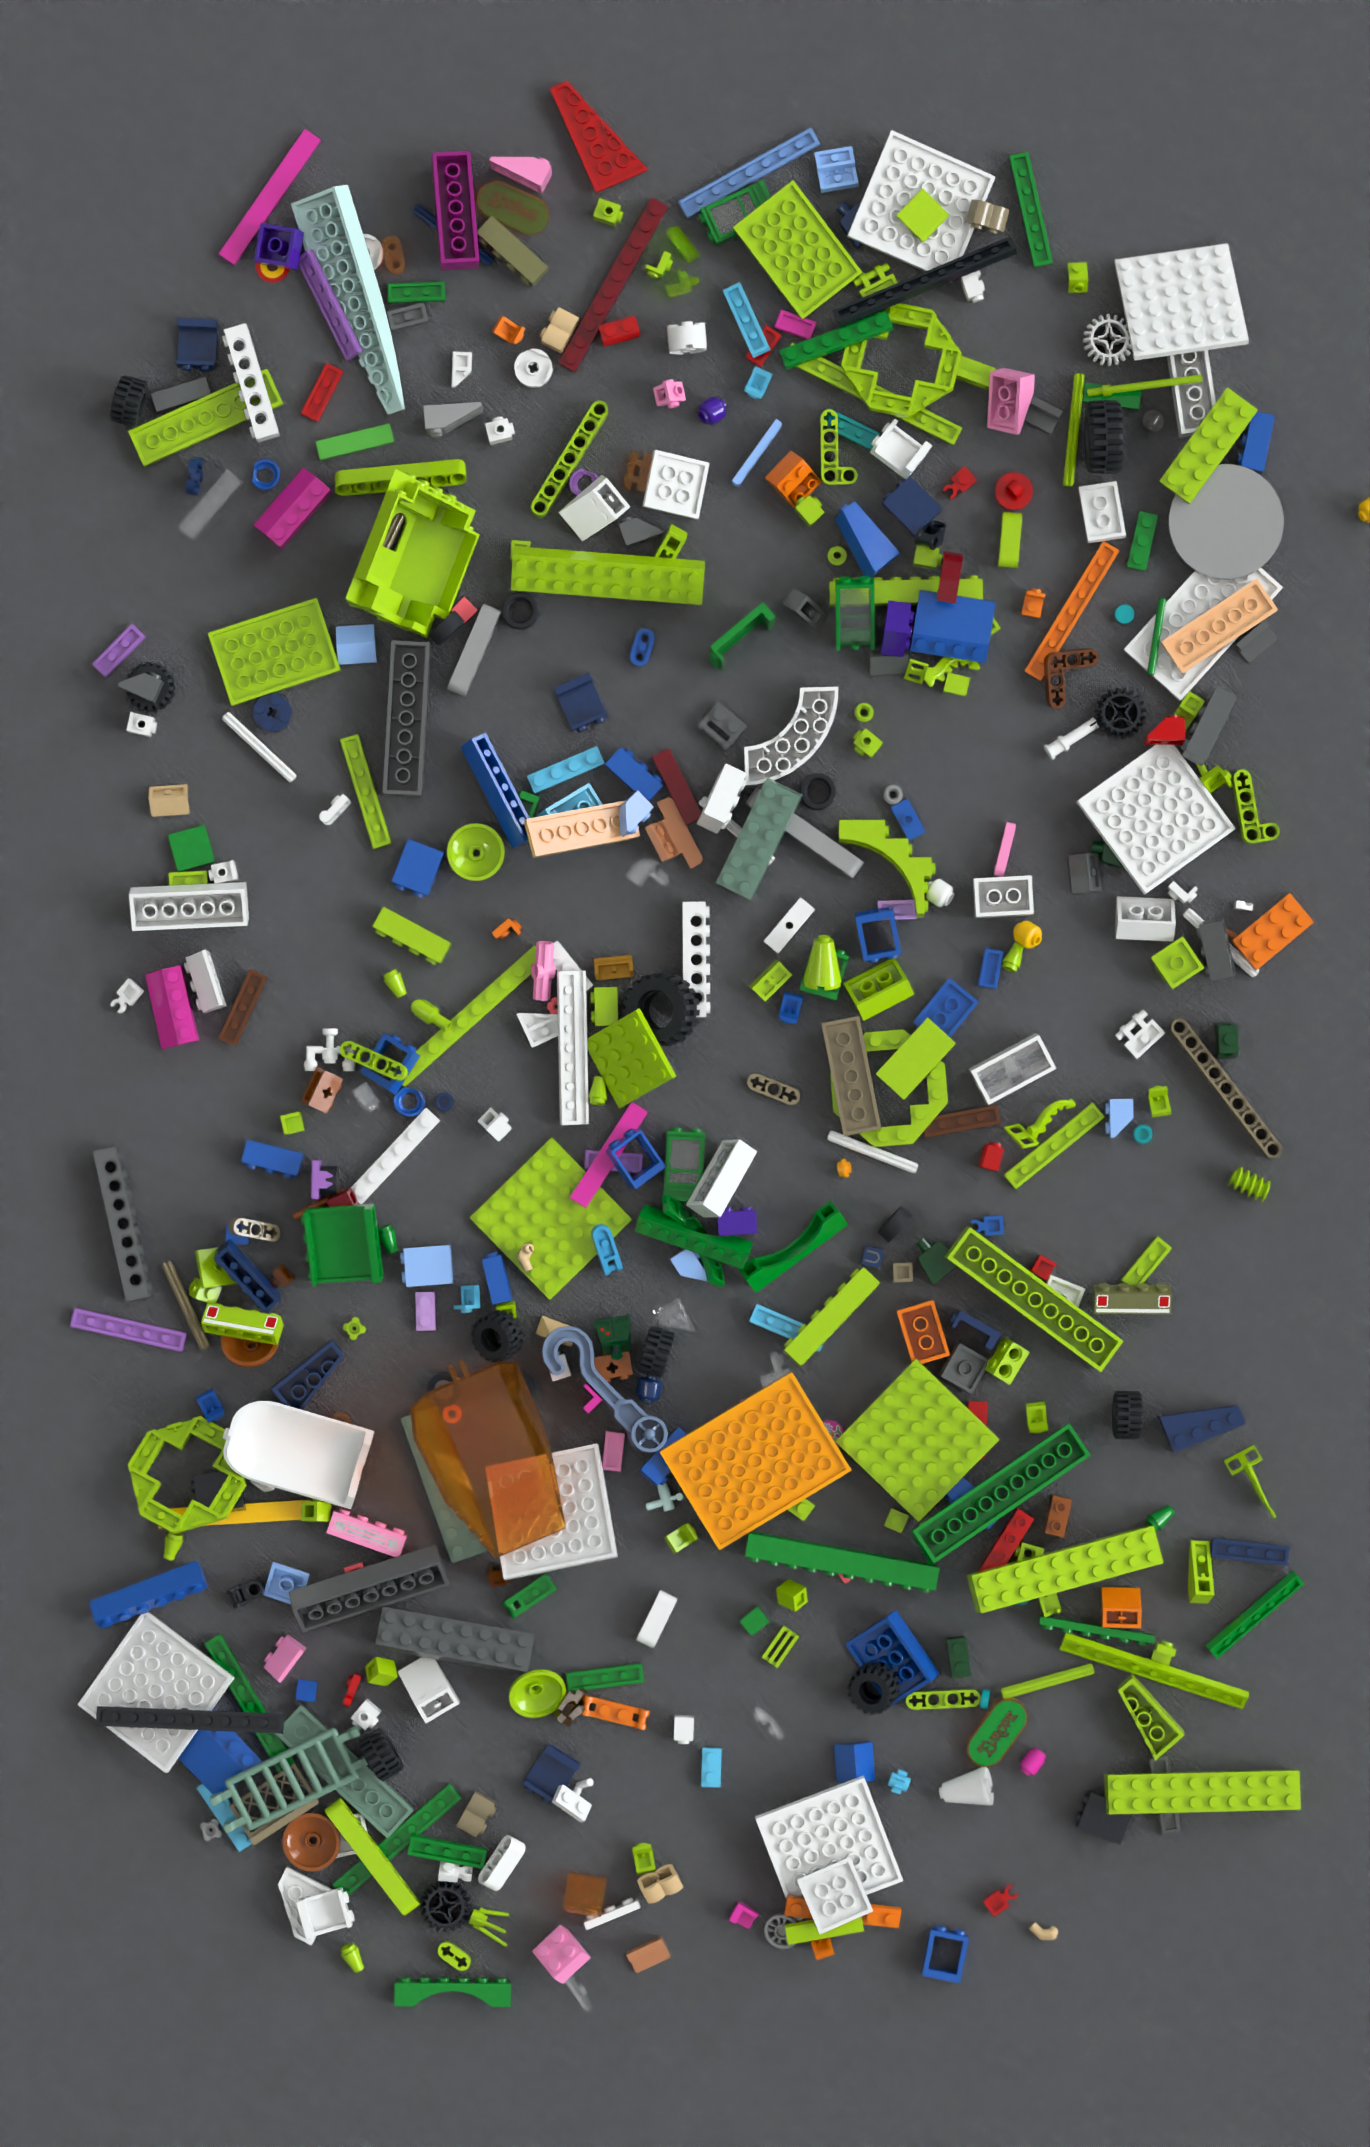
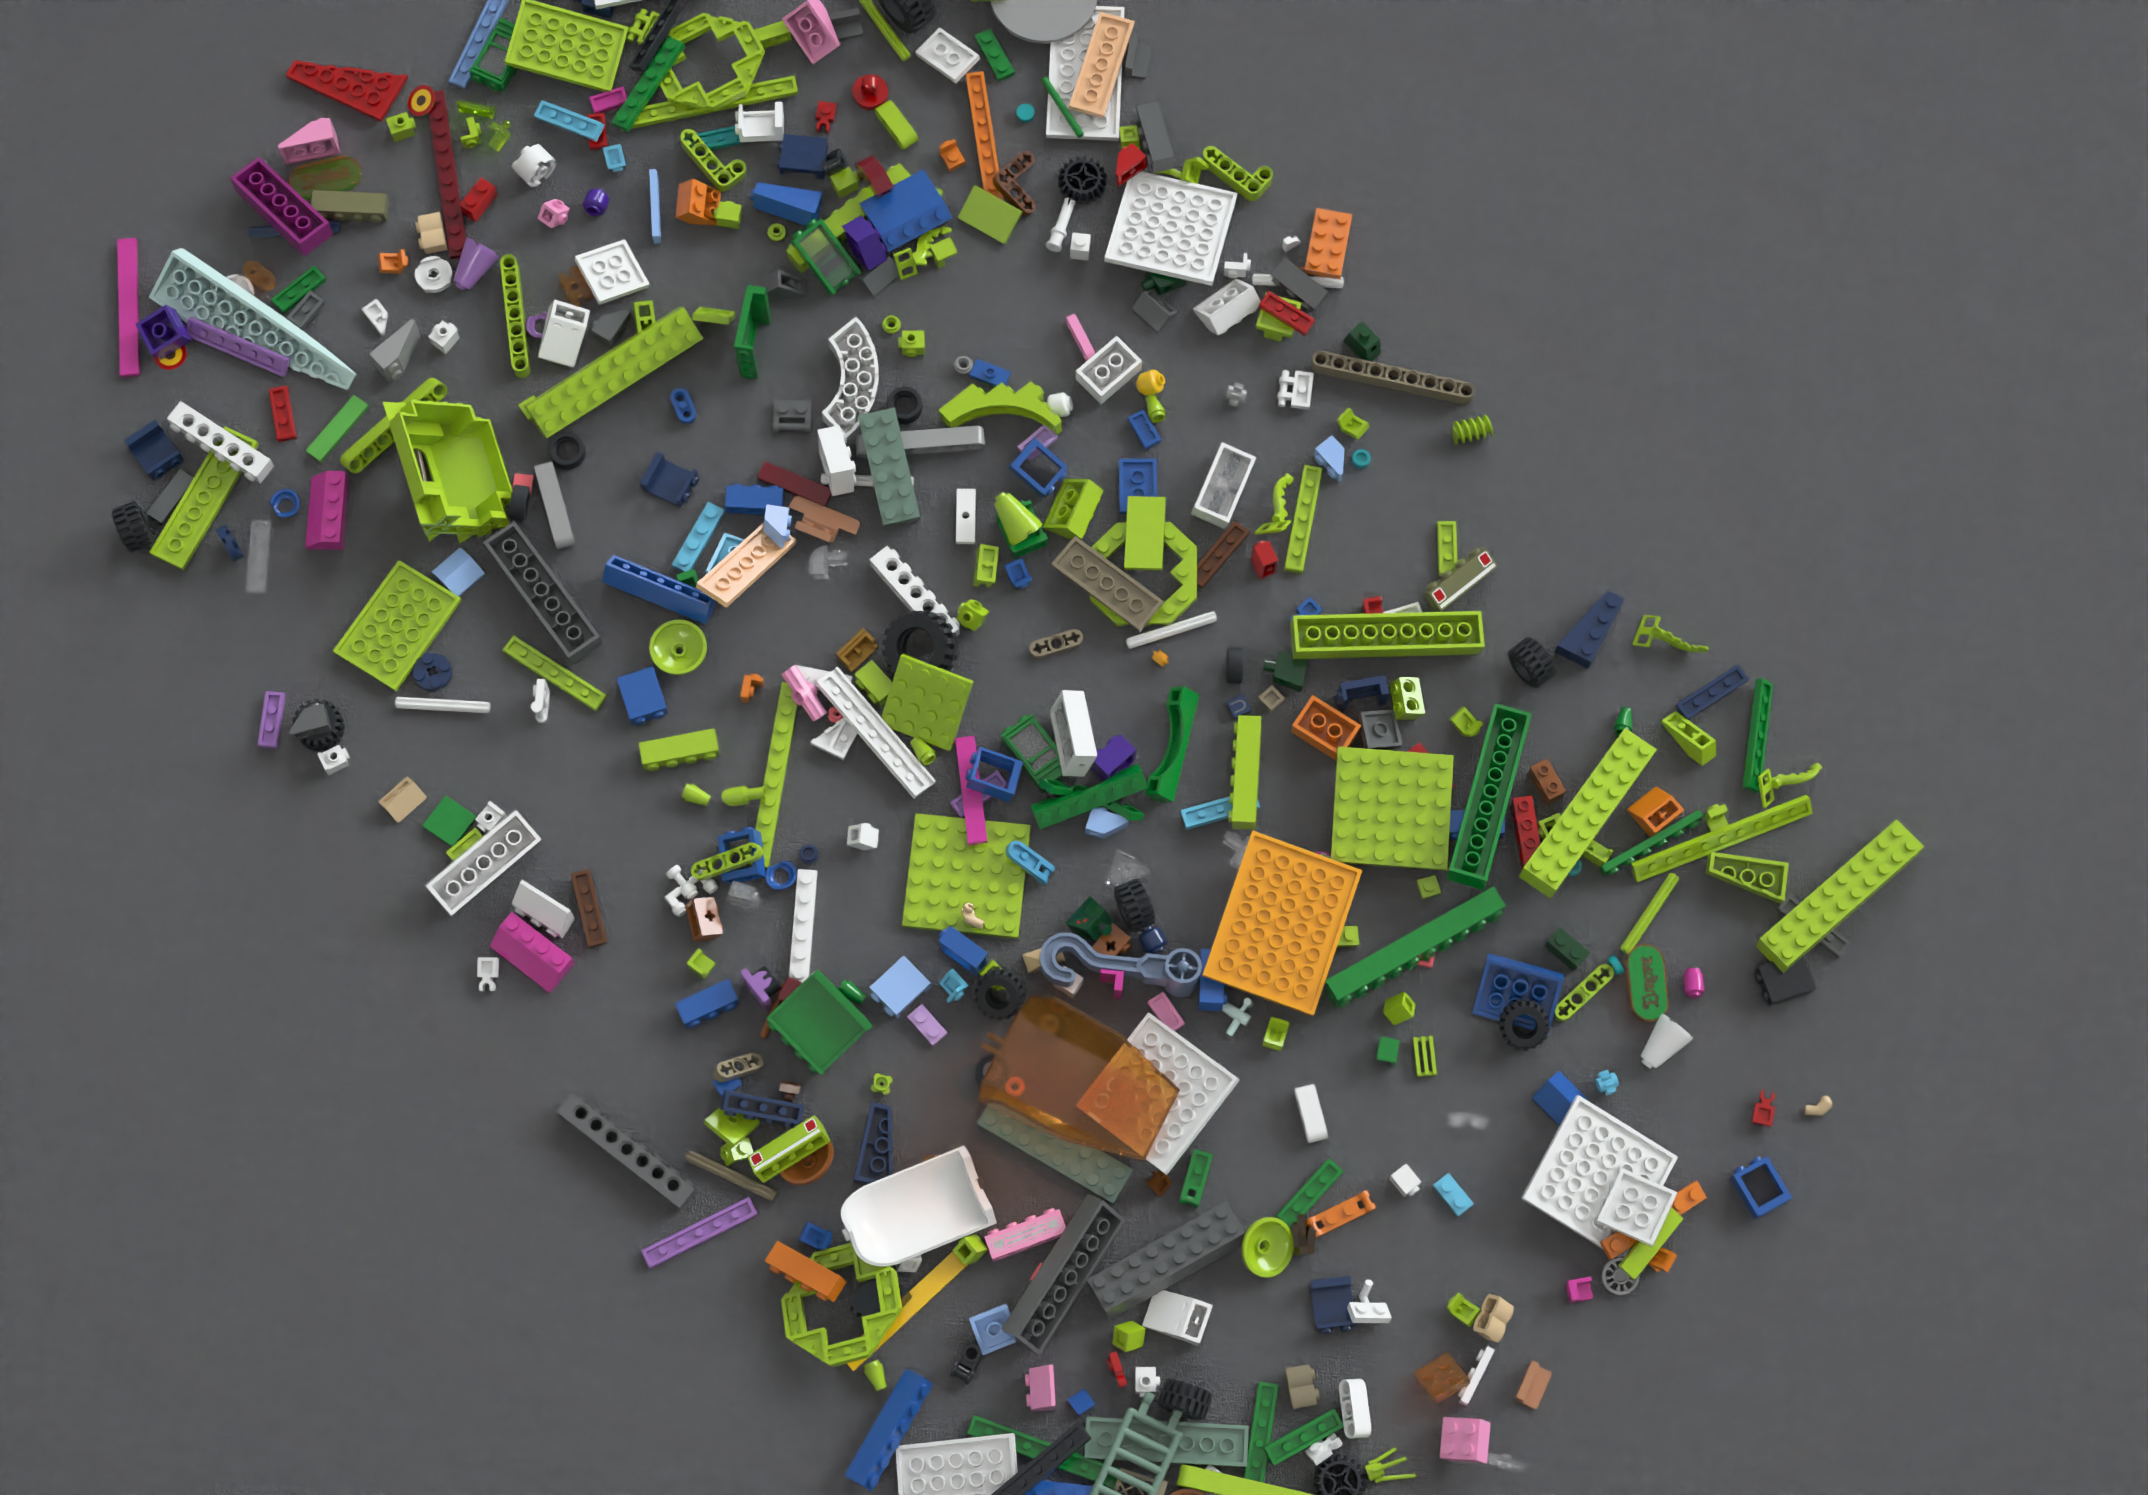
camera: 40 degrees left, 15 degrees down
(180, 1428) = (805, 1271): none -> orange brick
(571, 386) = (473, 264): none -> medium lavender cone
(642, 201) = (421, 100): none -> sticker
(726, 591) = (713, 315): none -> lime tile
(726, 1012) = (972, 614): none -> lime brick
(1020, 682) = (990, 214): none -> lime tile
(1069, 770) = (1080, 246): none -> white brick
(1088, 1000) = (1236, 394): none -> light grey gear
(1183, 968) = (1286, 313): none -> red tile
(1242, 1664) = (1781, 779): none -> lime piece

